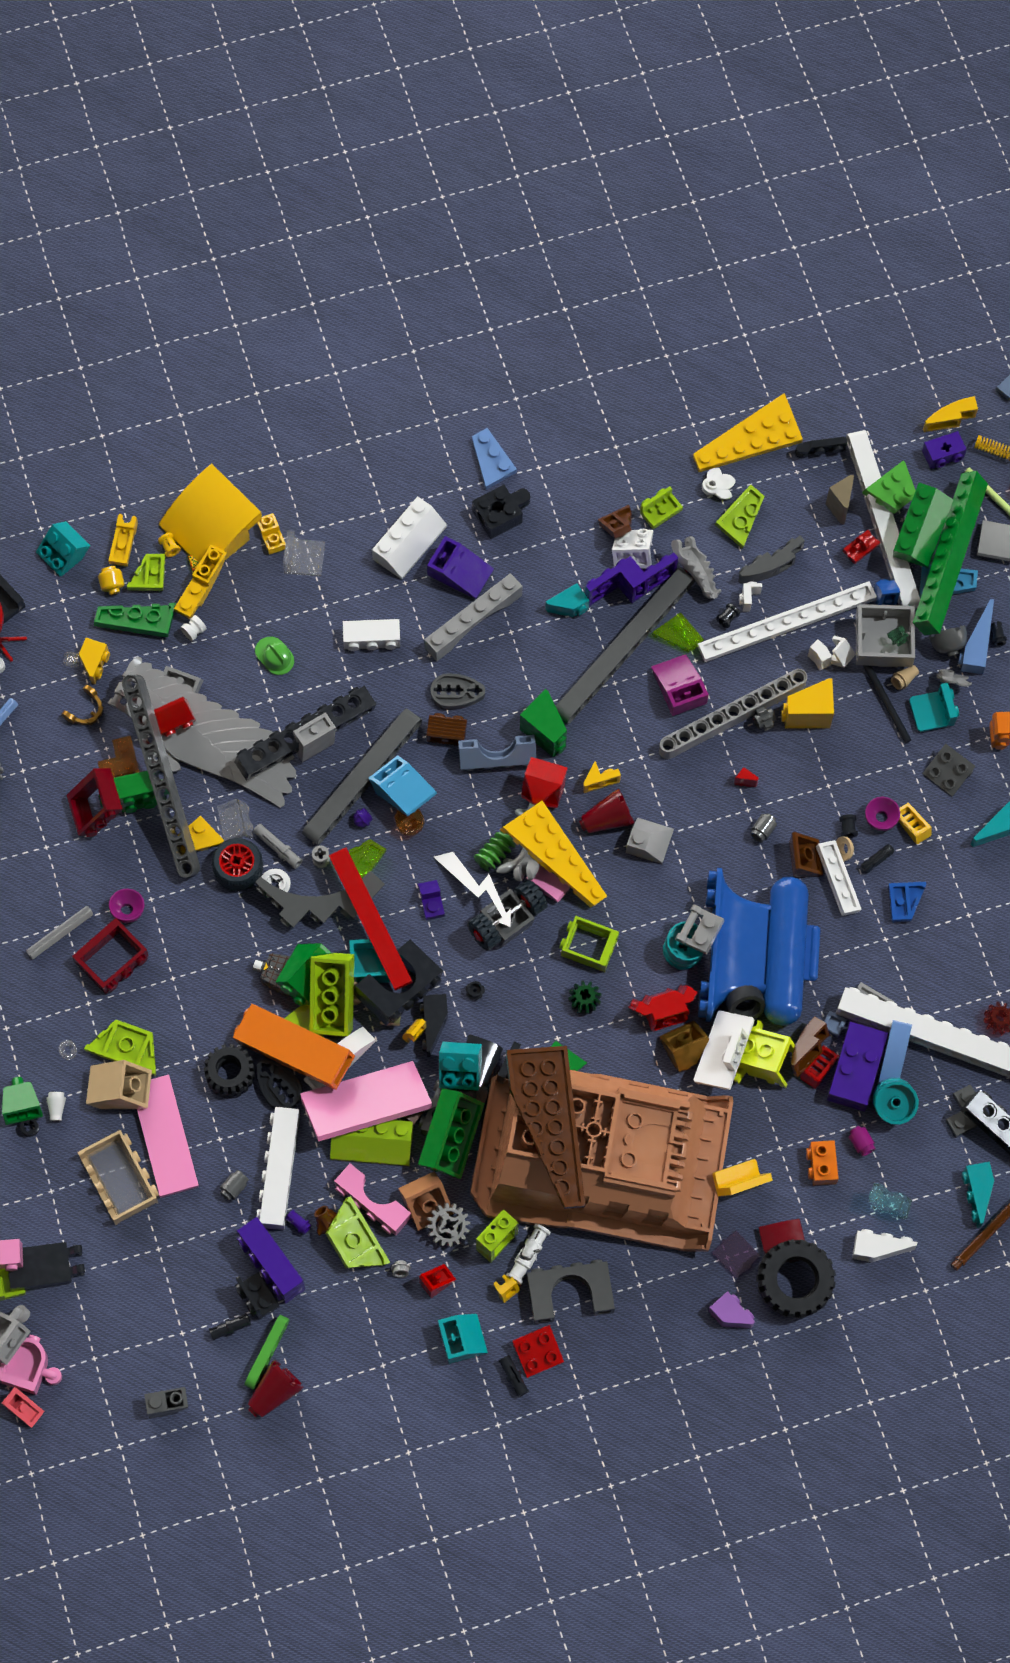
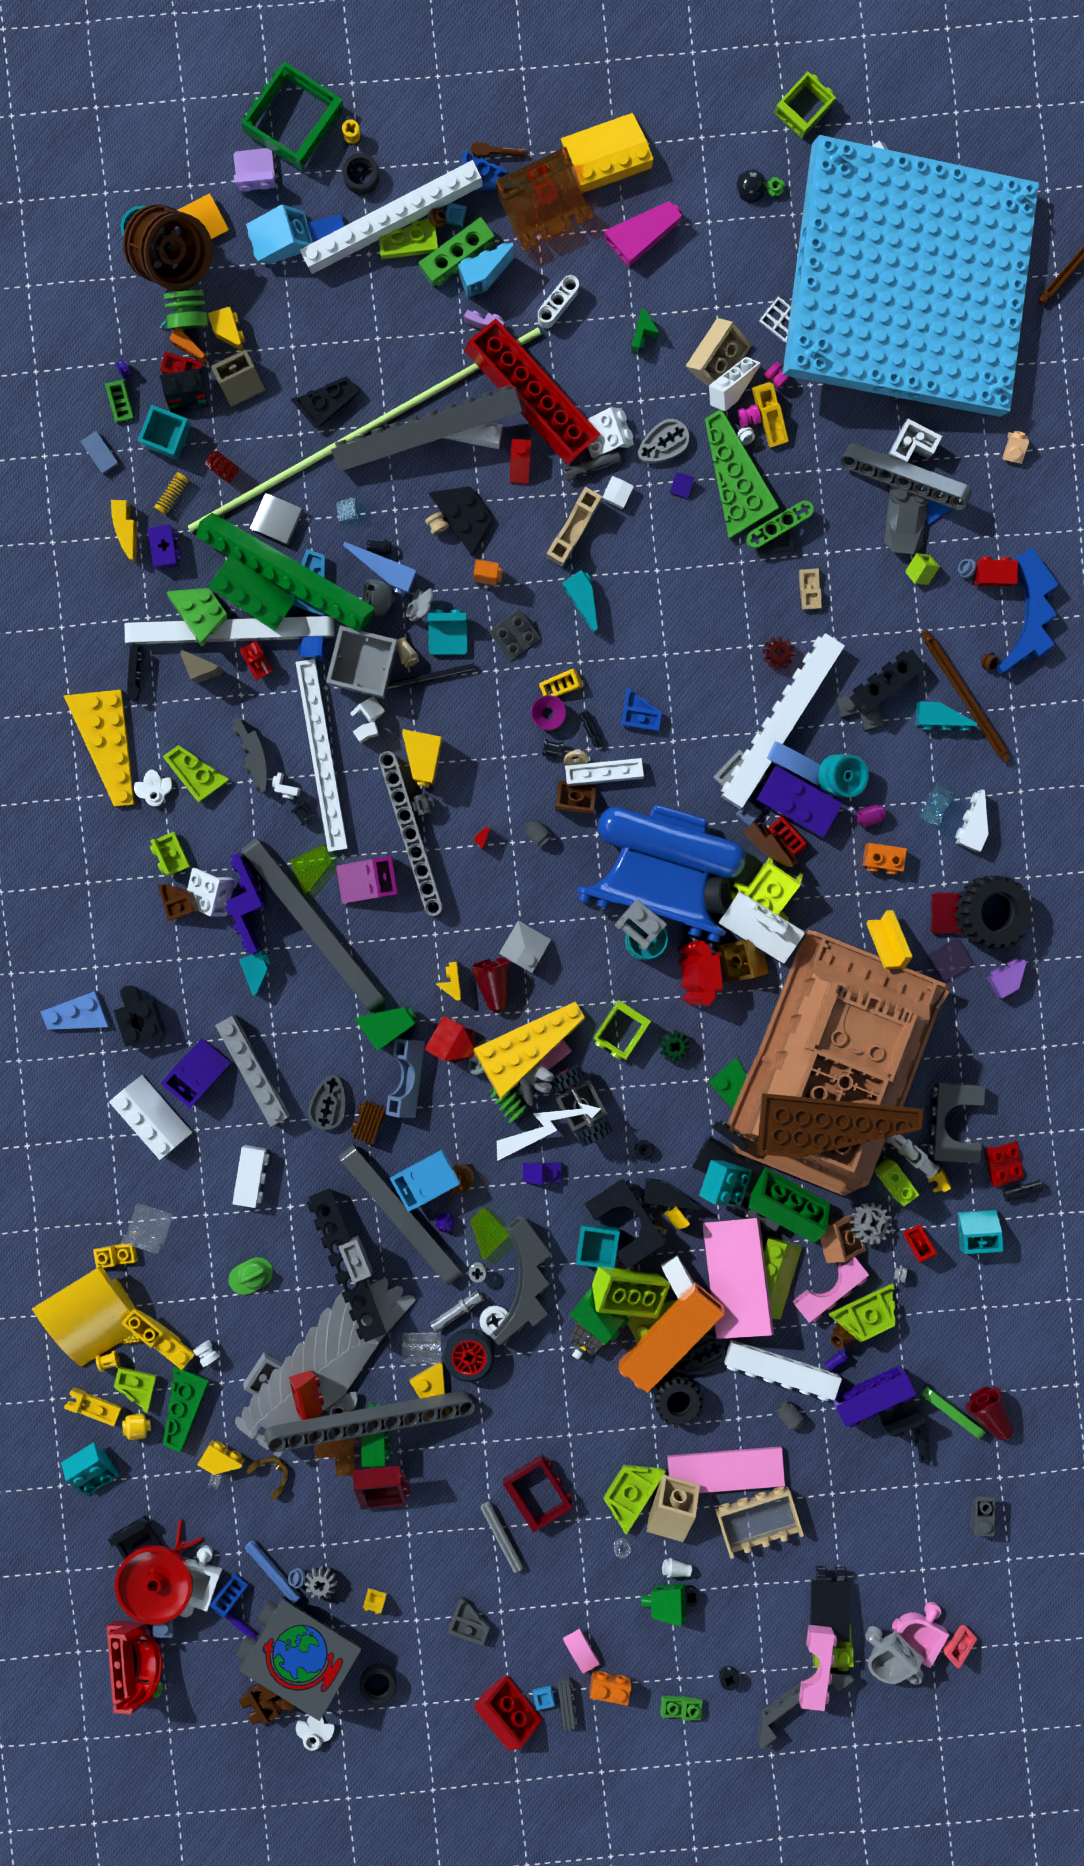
camera: 80 degrees left, 20 degrees up
(123, 898) = (488, 1480): magenta piece -> none
(370, 919) = (559, 1240): red tile -> none
(695, 564) = (241, 833): light grey animal -> none
(898, 636) = (369, 650): clear green plate -> none

